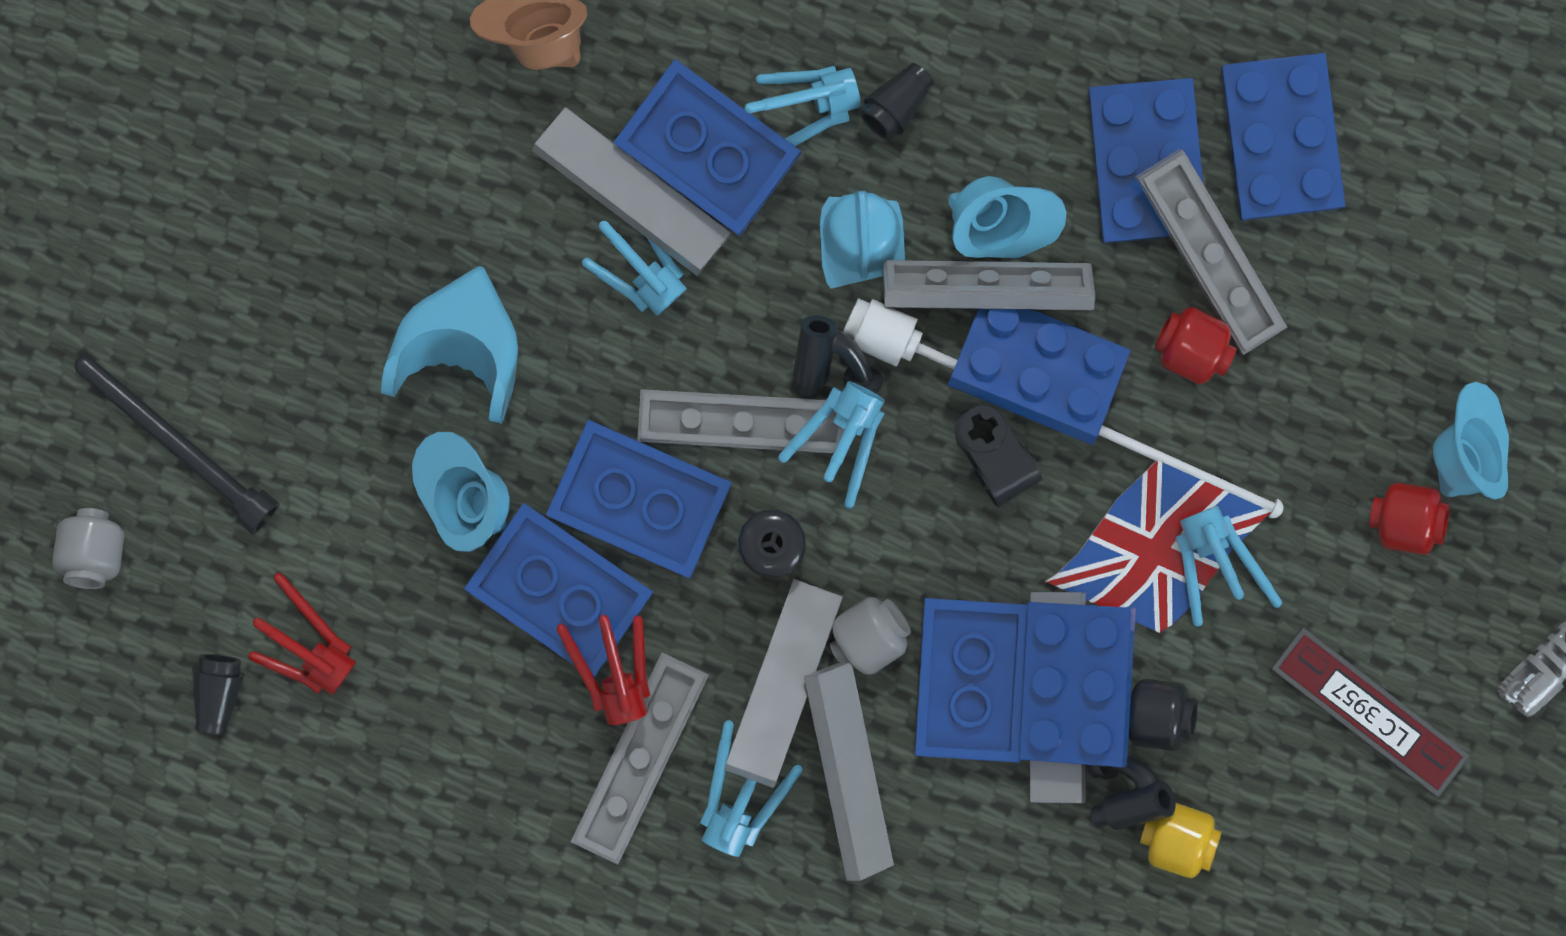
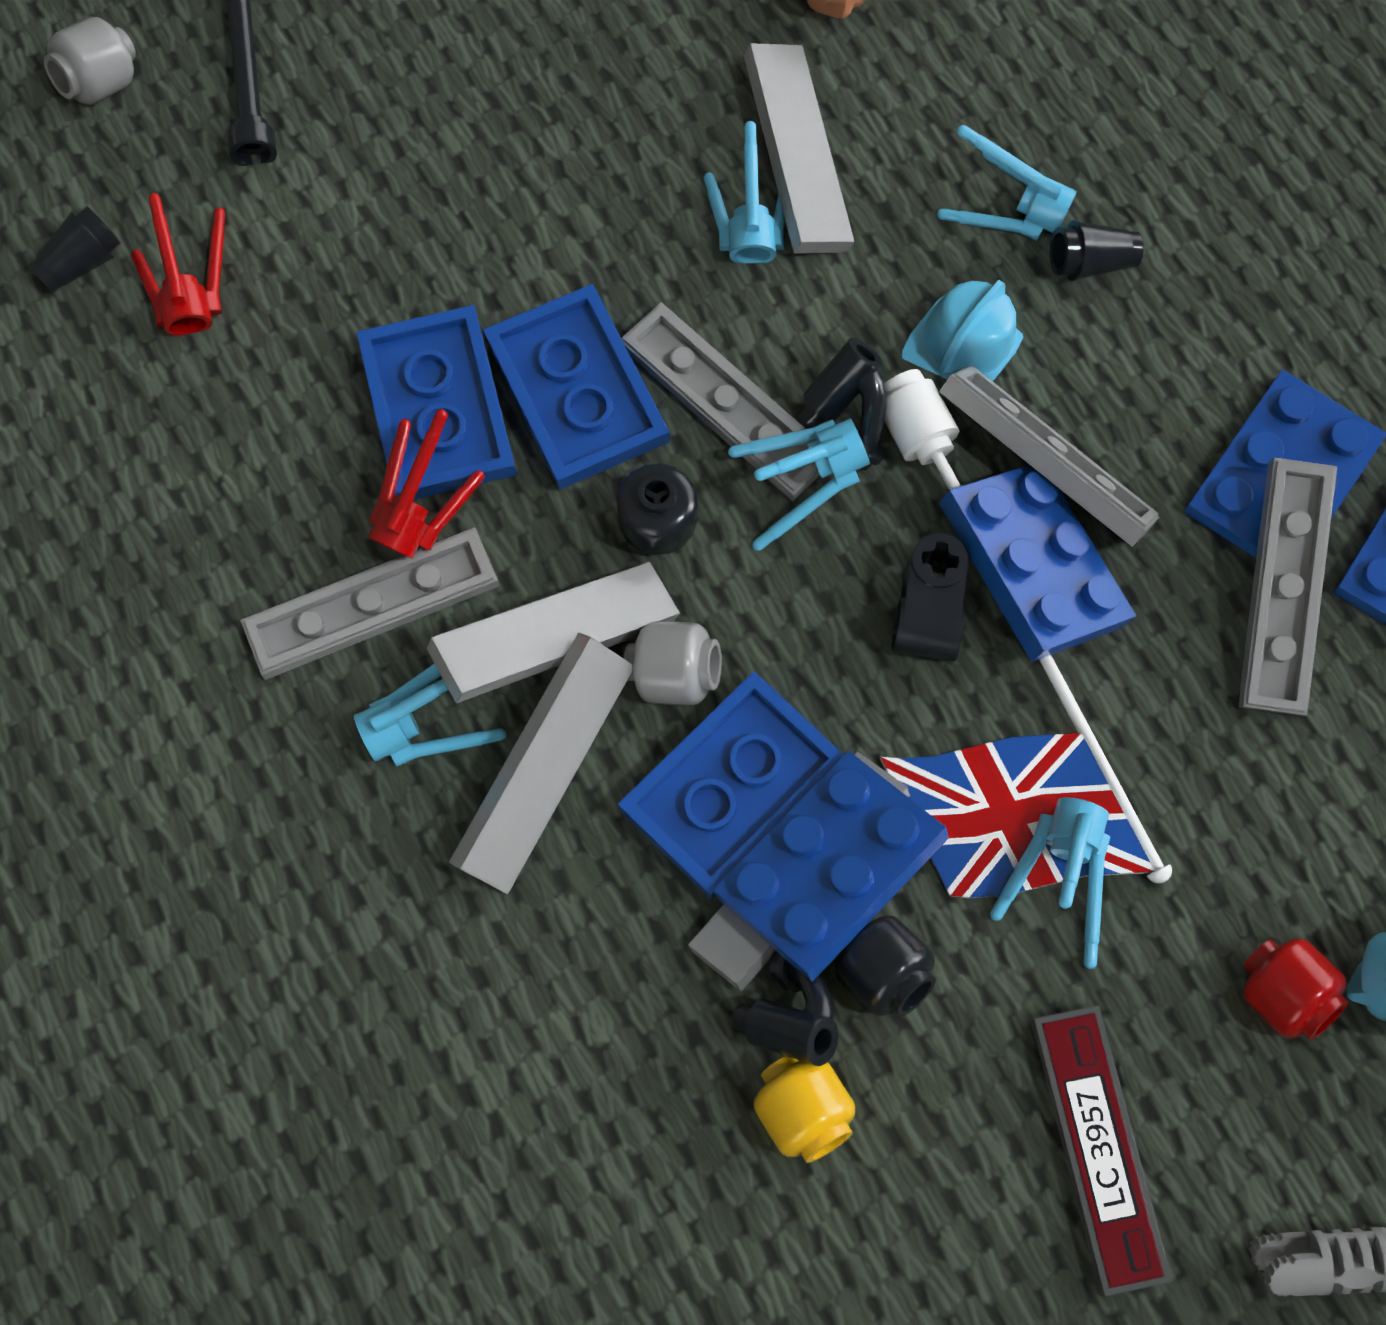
camera: 40 degrees right, 15 degrees down
(458, 327) = (544, 124): medium azure animal -> none
(459, 491) = (429, 253): medium azure piece -> none
(707, 147) = (895, 161): blue plate -> none
(1004, 219) = (1114, 412): medium azure piece -> none
(1195, 345) = (1204, 655): red head -> none

